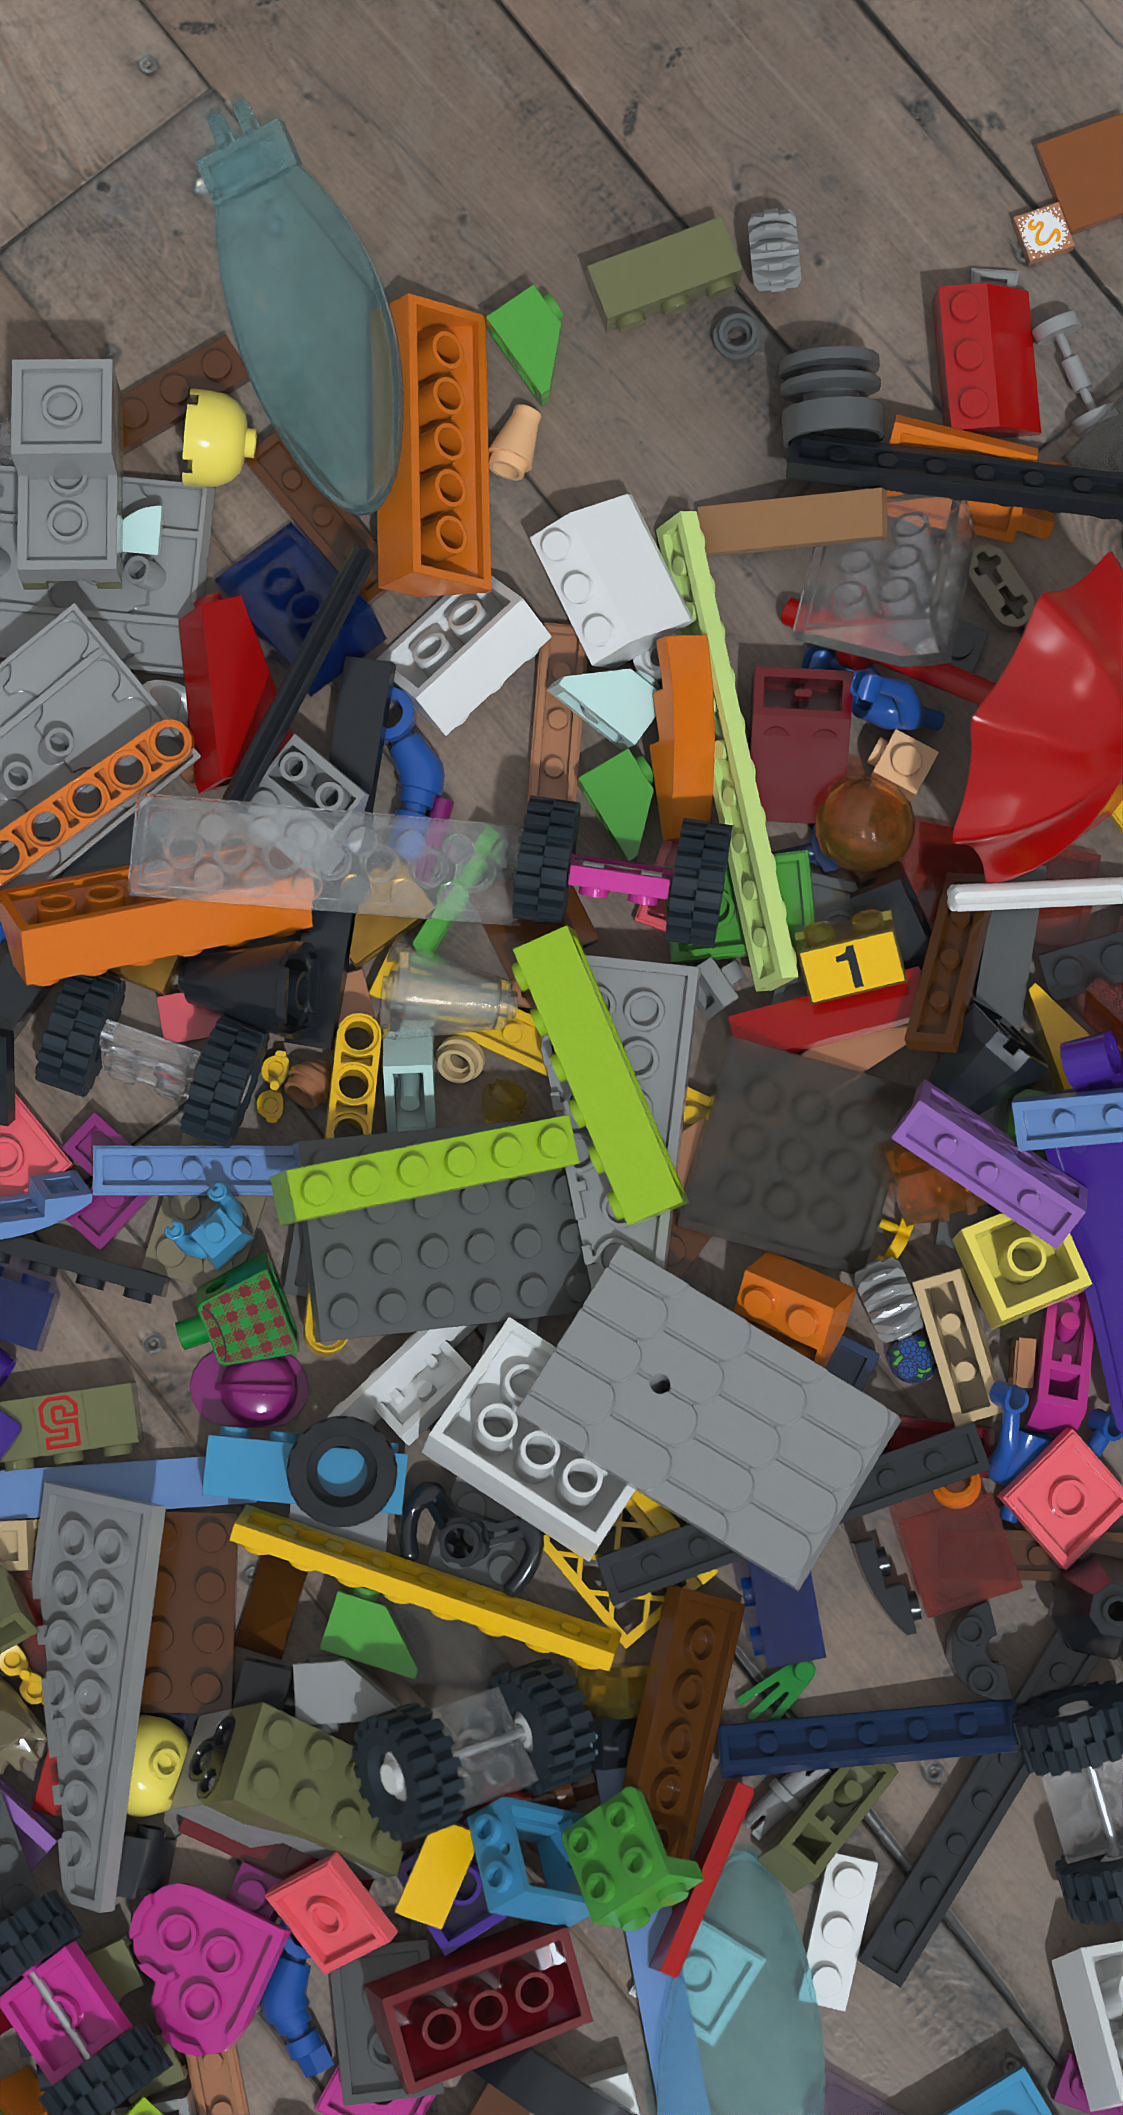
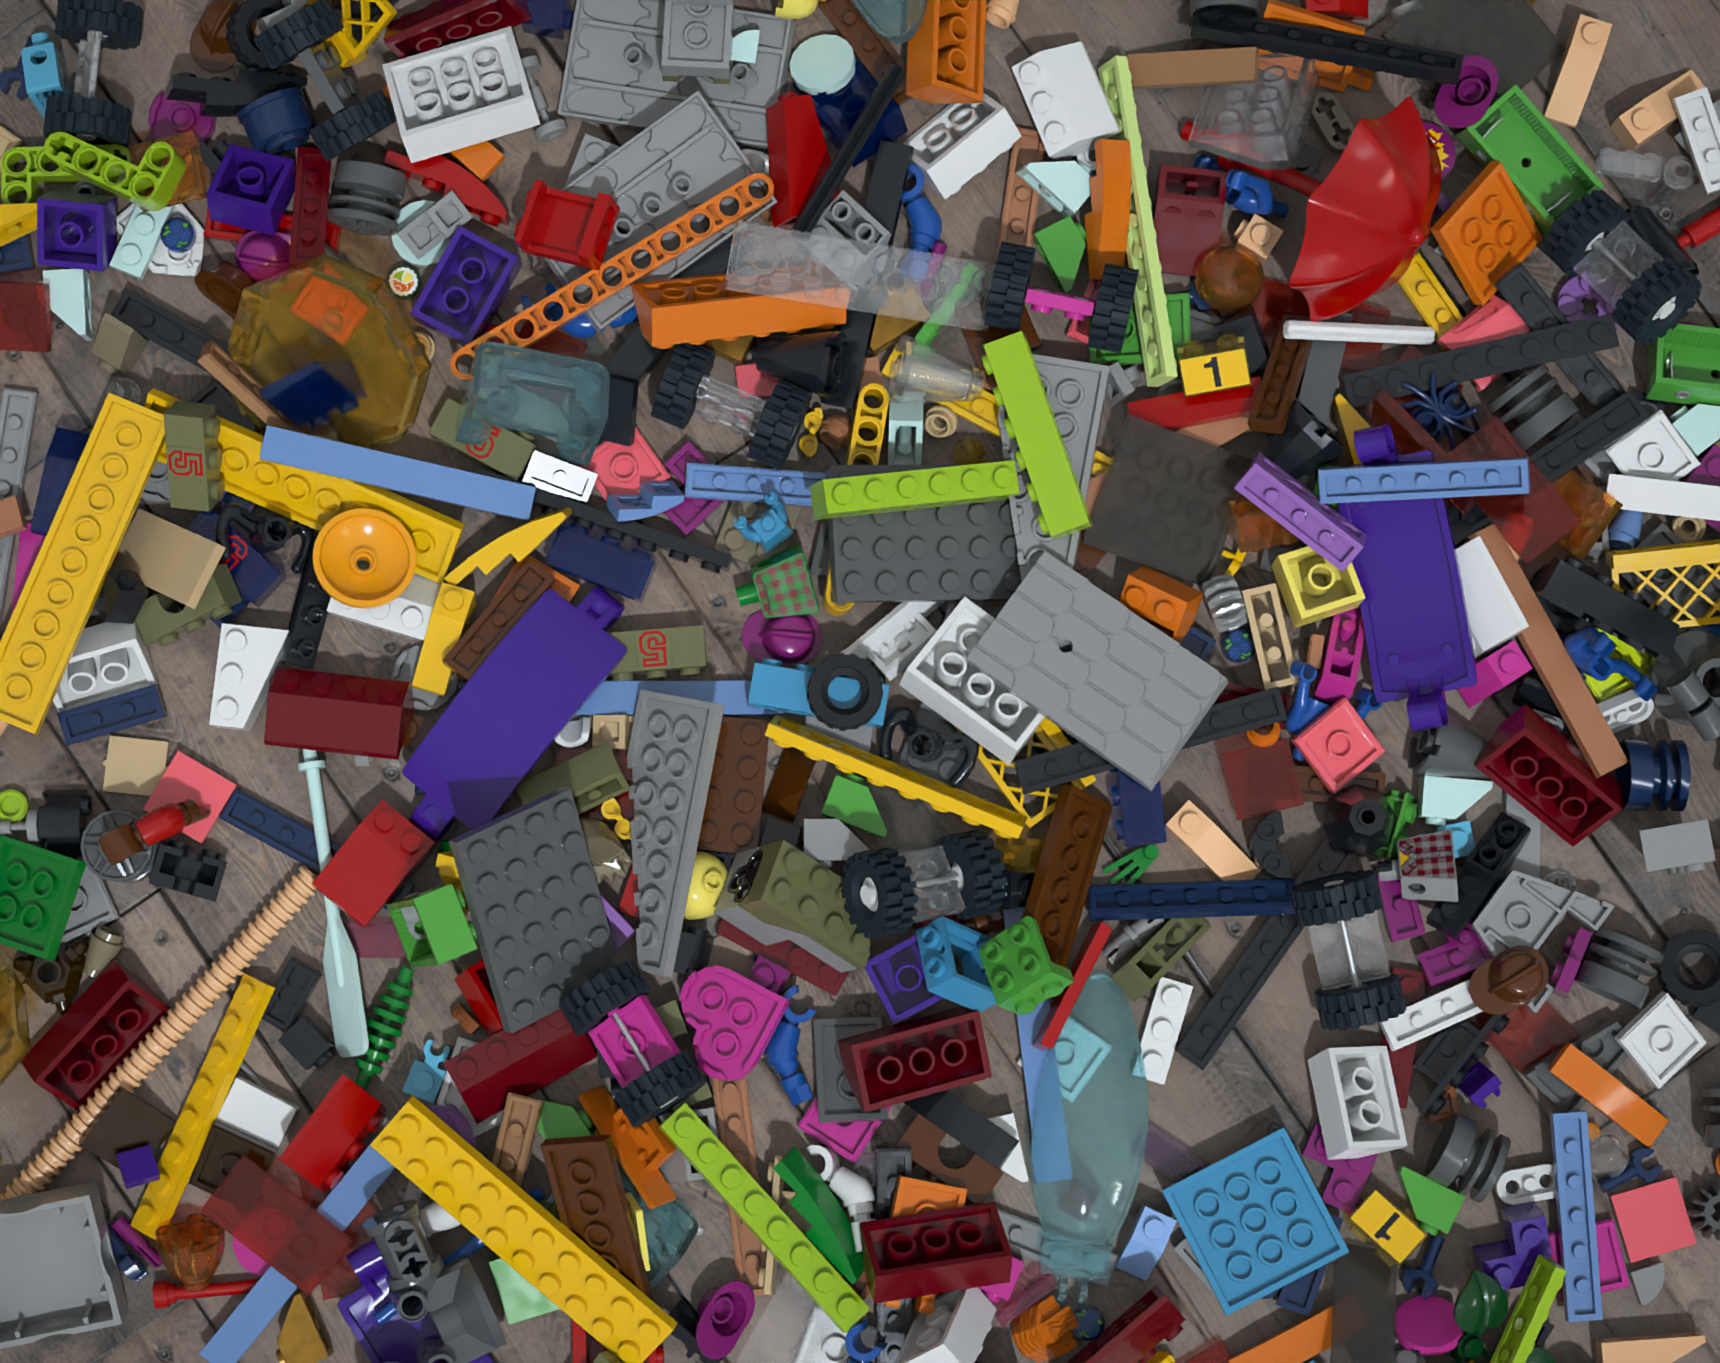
camera: 10 degrees right, 0 degrees up
(257, 550) = (822, 64): none -> light aqua tile
(331, 1913) = (818, 989): coral tile -> none
(437, 1876) = (893, 967): yellow slope -> none
(890, 1654) = (1210, 844): none -> light nougat slope
(893, 1599) = (1214, 808): black slope -> none

